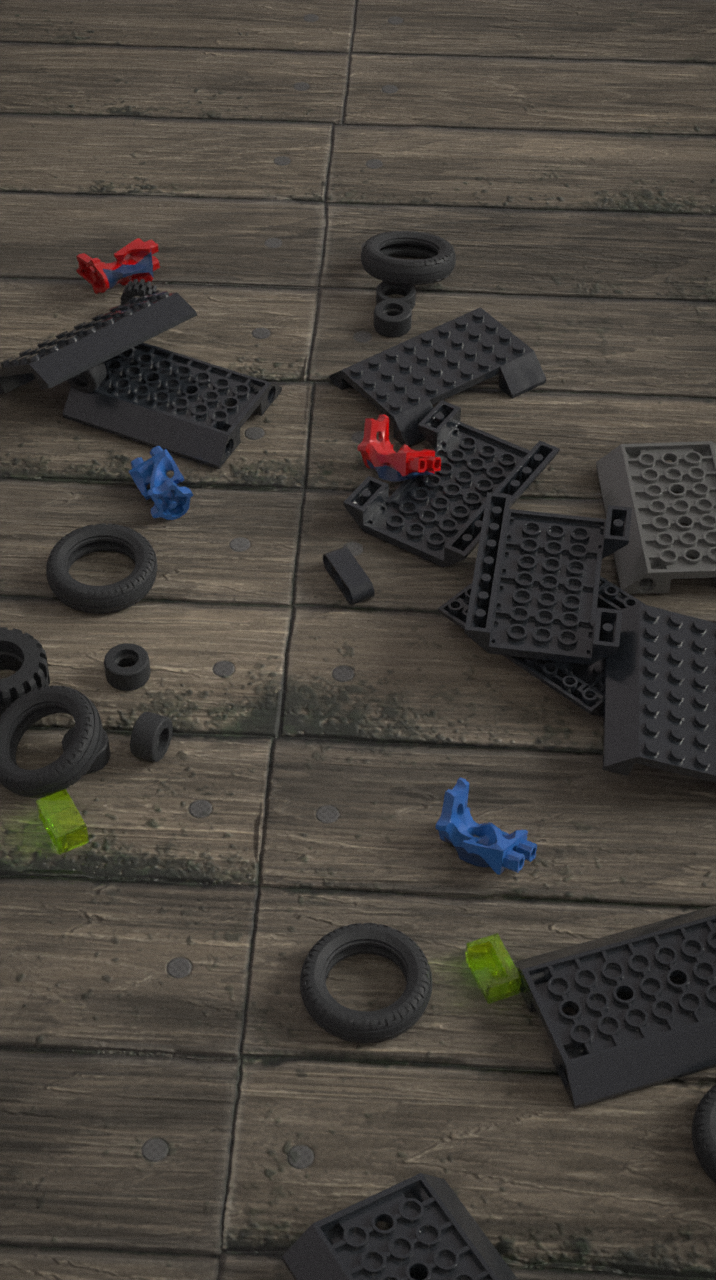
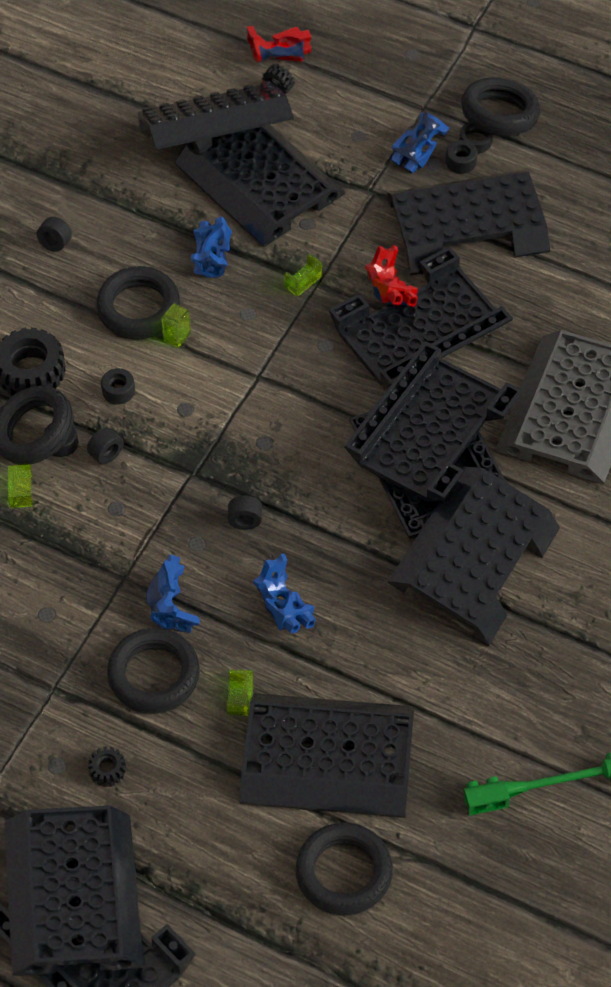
camera: 25 degrees right, 10 degrees up
(165, 576) = (176, 325): none -> clear neon green panel
(288, 482) = (304, 277): none -> clear neon green panel
(328, 887) = (160, 594): none -> blue hips
(346, 294) = (412, 151): none -> blue hips
(348, 575) = (306, 368): black beam -> none
(373, 753) = (244, 512): none -> black tyre
(373, 1144) = (107, 777): none -> black tyre

